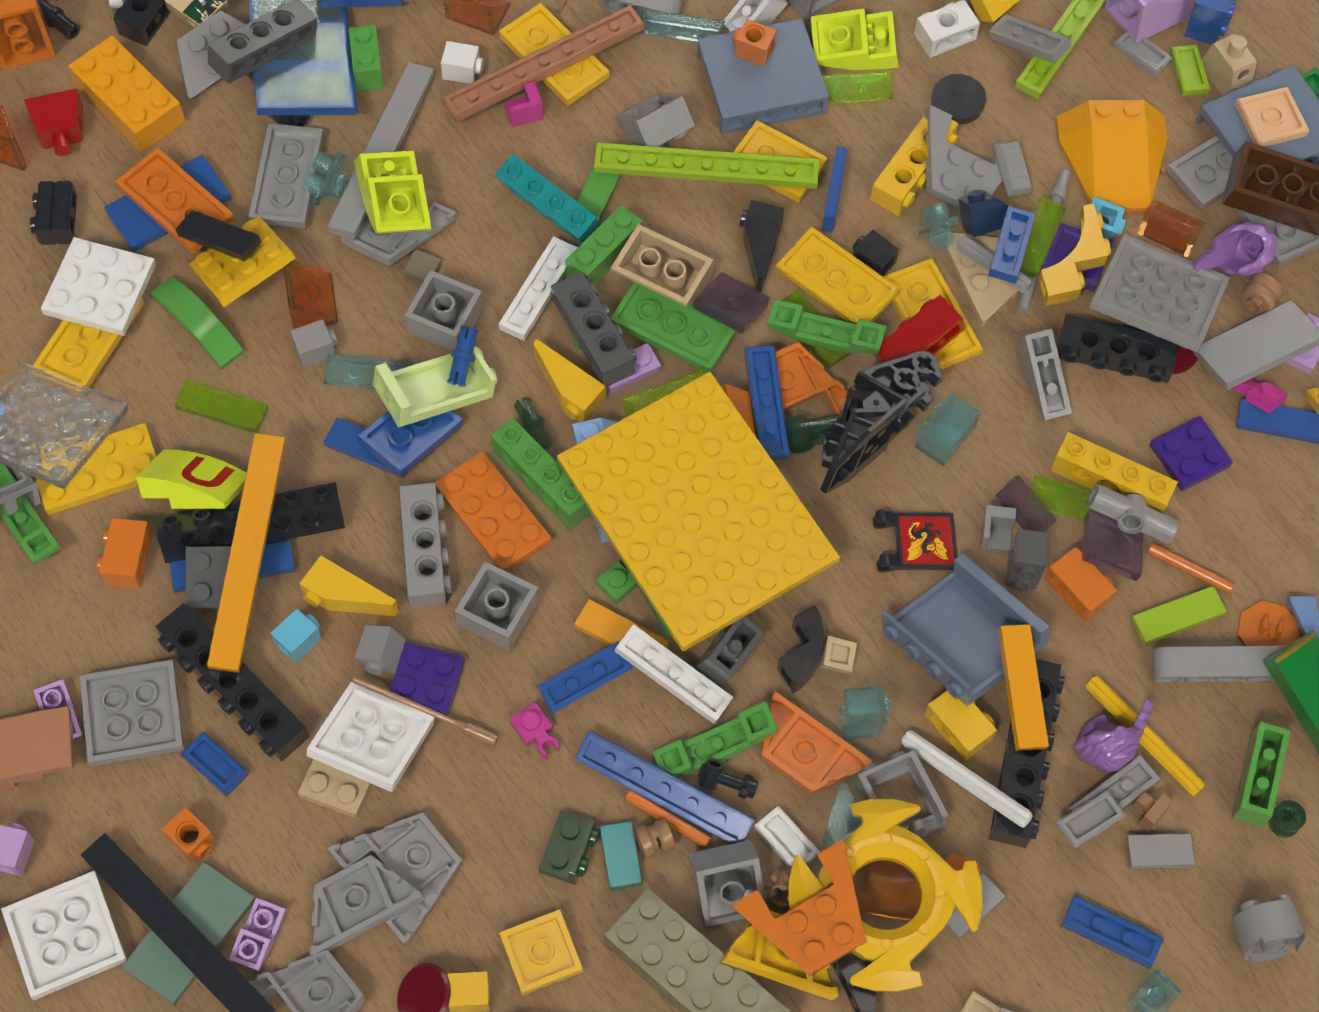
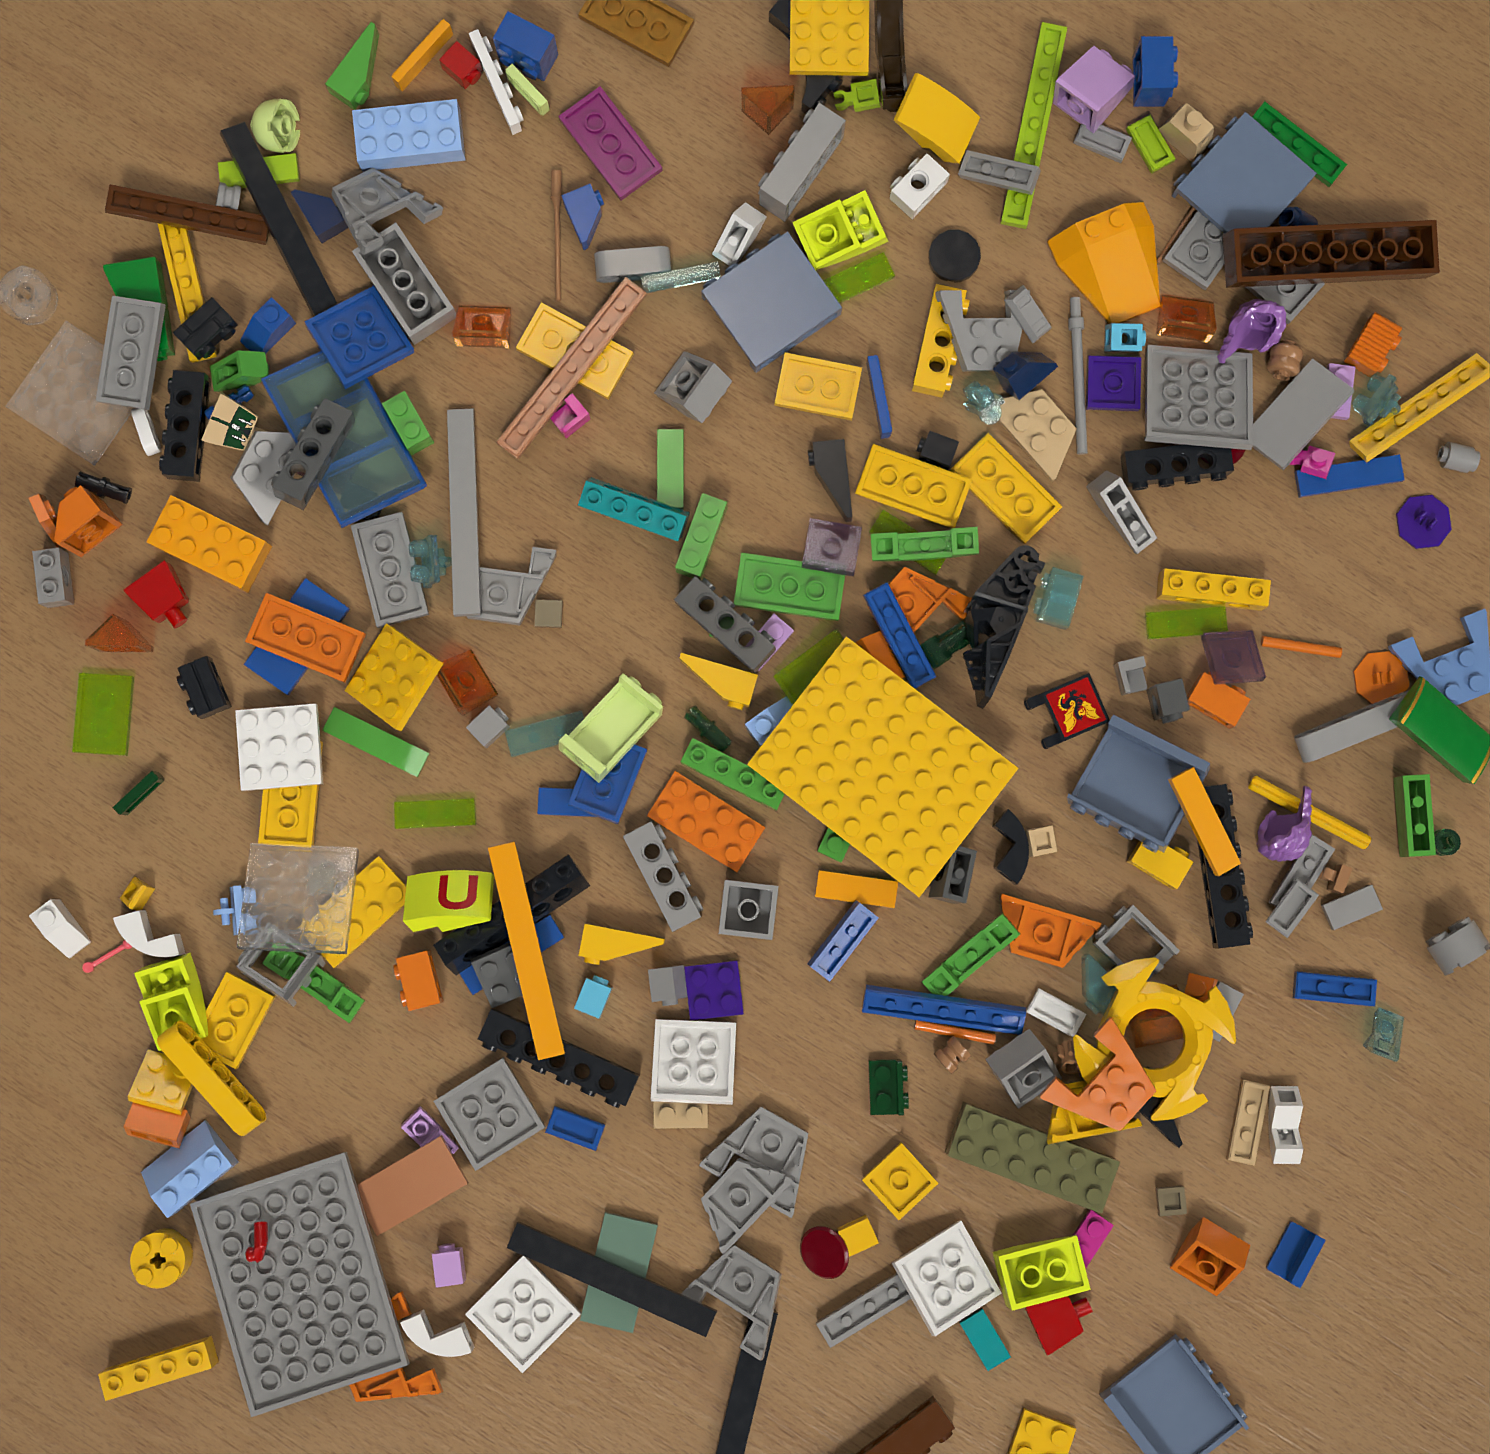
camera: 20 degrees left, 20 degrees up
(184, 824) = (572, 1199): orange brick -> none
(218, 235) = (365, 665): black tile -> none
(259, 934) = (673, 1252): lavender slope -> none
(392, 192) = (496, 559): neon yellow slope -> none
(441, 310) = (589, 655): light grey brick -> none
(461, 62) = (496, 393): white brick -> none
(462, 356) = (625, 696): blue pin -> none
(466, 727) = (778, 1020): medium nougat piece -> none
(533, 727) = (817, 996): dark pink plate -> none
(536, 290) = (659, 596): white plate -> none
(620, 856) = (930, 1077): teal tile -> none
(664, 266) = (761, 541): tan slope -> none
(673, 674) = (914, 912): white plate -> none
(706, 165) = (760, 420): lime plate -> none
(711, 774) = (978, 982): black bar -> none
(754, 42) = (765, 271): orange brick -> none
(864, 712) = (1083, 888): clear light blue brick -> none
(926, 331) = (1007, 522): red brick -> none
(967, 779) = (1182, 912): white axle -> none
(984, 258) = (1046, 423): light grey axle -> none
(1011, 245) = (1057, 404): plate -> none
(1030, 511) = (1147, 644): tile -> none
(1045, 225) = (1074, 378): clear neon green tile -> none
(1062, 280) = (1126, 380): yellow arch -> none
(1132, 513) = (1240, 622): light grey piece -> none
(1178, 615) = (1304, 694): lime tile -> none
(1191, 453) = (1269, 538): dark purple plate -> none
(1272, 117) = (1243, 178): light nougat tile -> none

